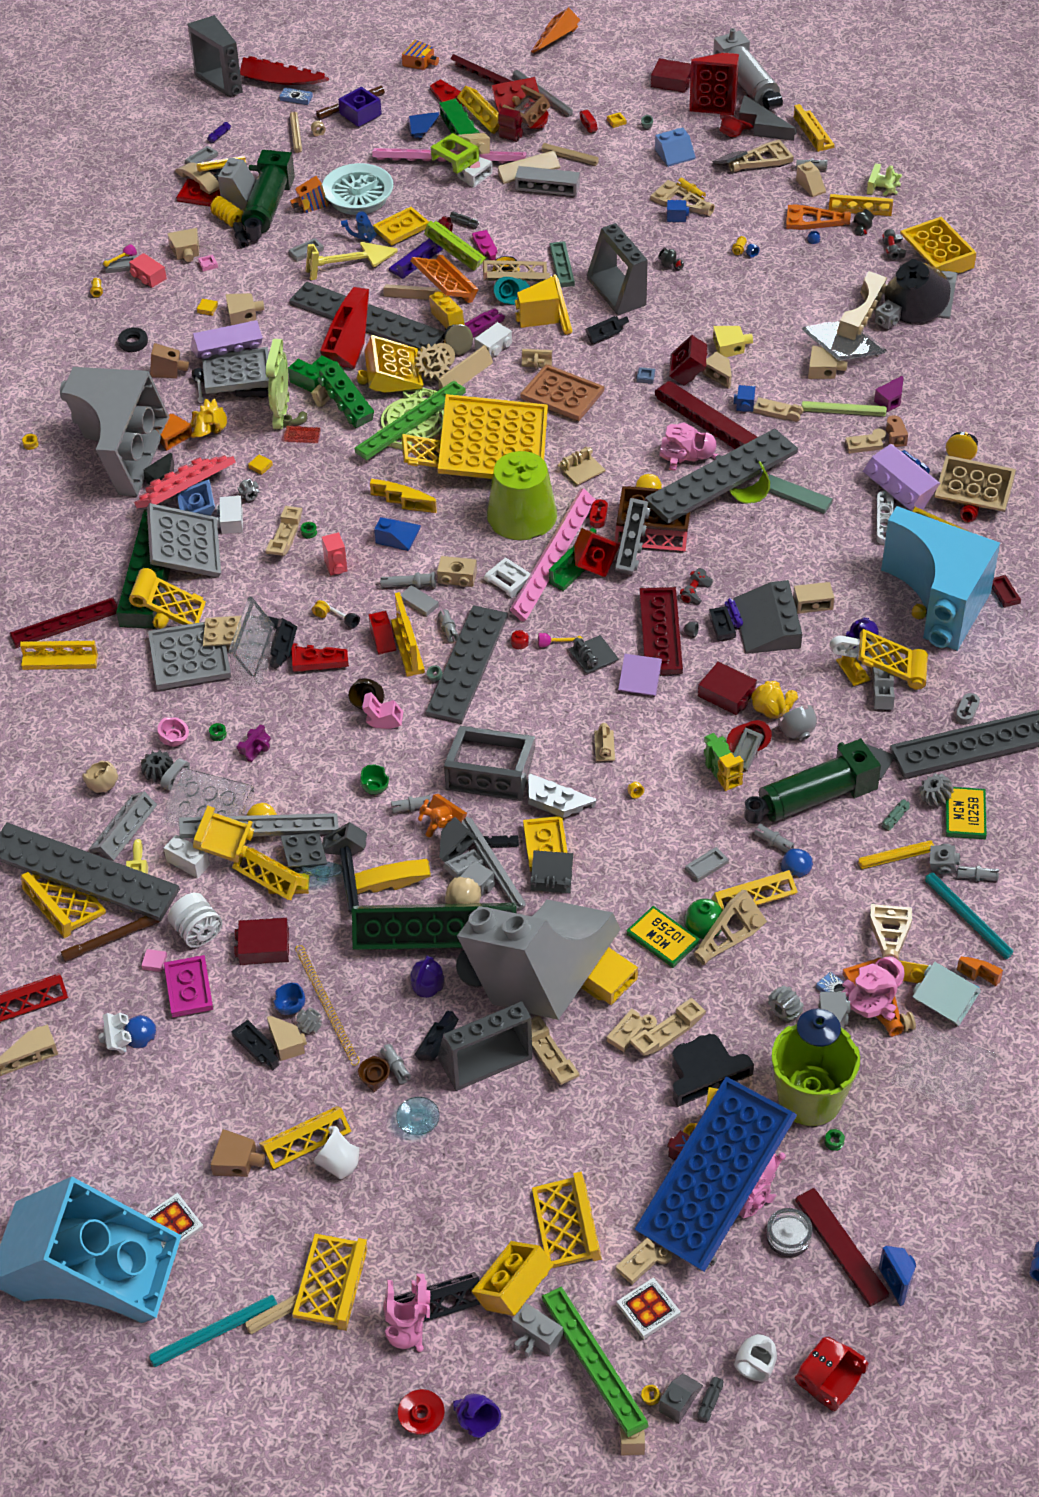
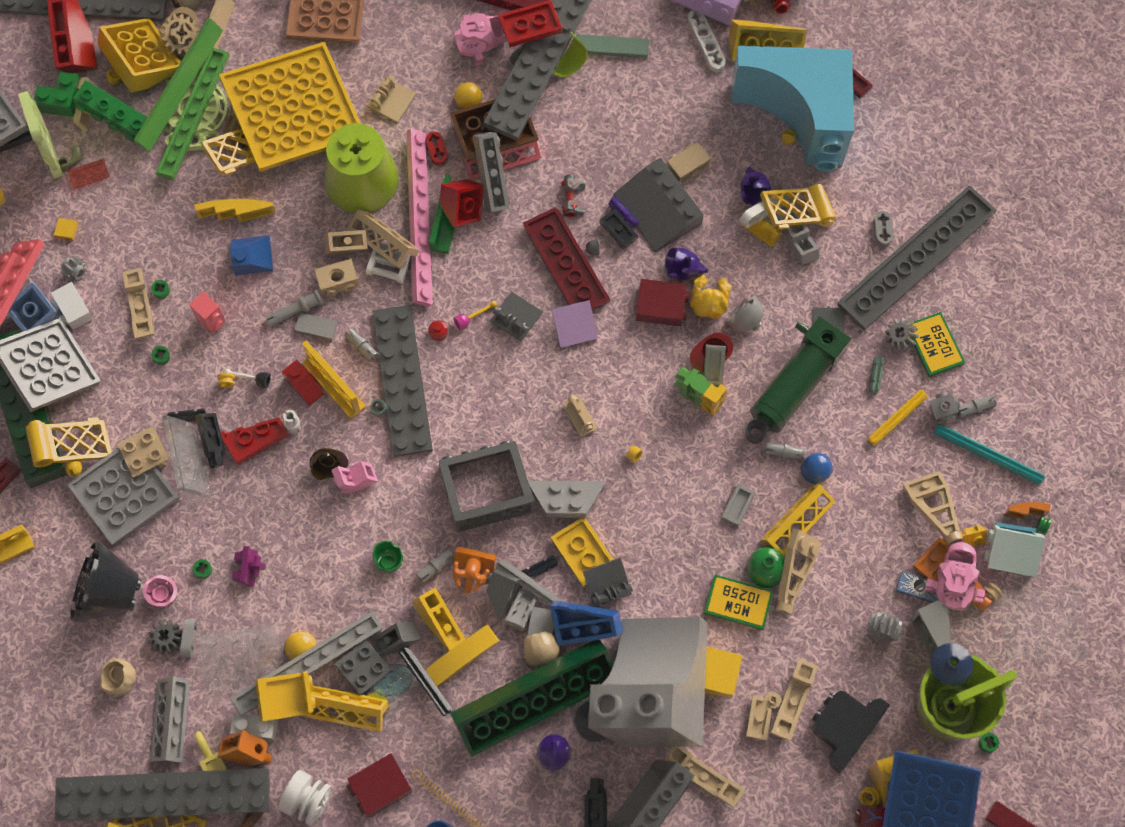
camera: 30 degrees left, 20 degrees up
(129, 704) = (104, 586): none -> black cone
(169, 865) = (244, 749): none -> orange torso
(279, 578) = (154, 354): none -> green bush
(354, 653) = (291, 422): none -> white pin
(388, 836) = (438, 618): none -> yellow slope
(410, 395) = (178, 85): none -> bright green tile
(478, 547) = (345, 242): none -> tan slope
(508, 886) = (584, 623): none -> blue wedge
(513, 549) = (386, 233): none -> tan fence
(728, 443) = (530, 23): none -> red plate
(764, 666) = (683, 264): none -> dark purple helmet
(837, 1053) = (985, 689): none -> lime plate
(989, 988) = (1043, 524): none -> green bush

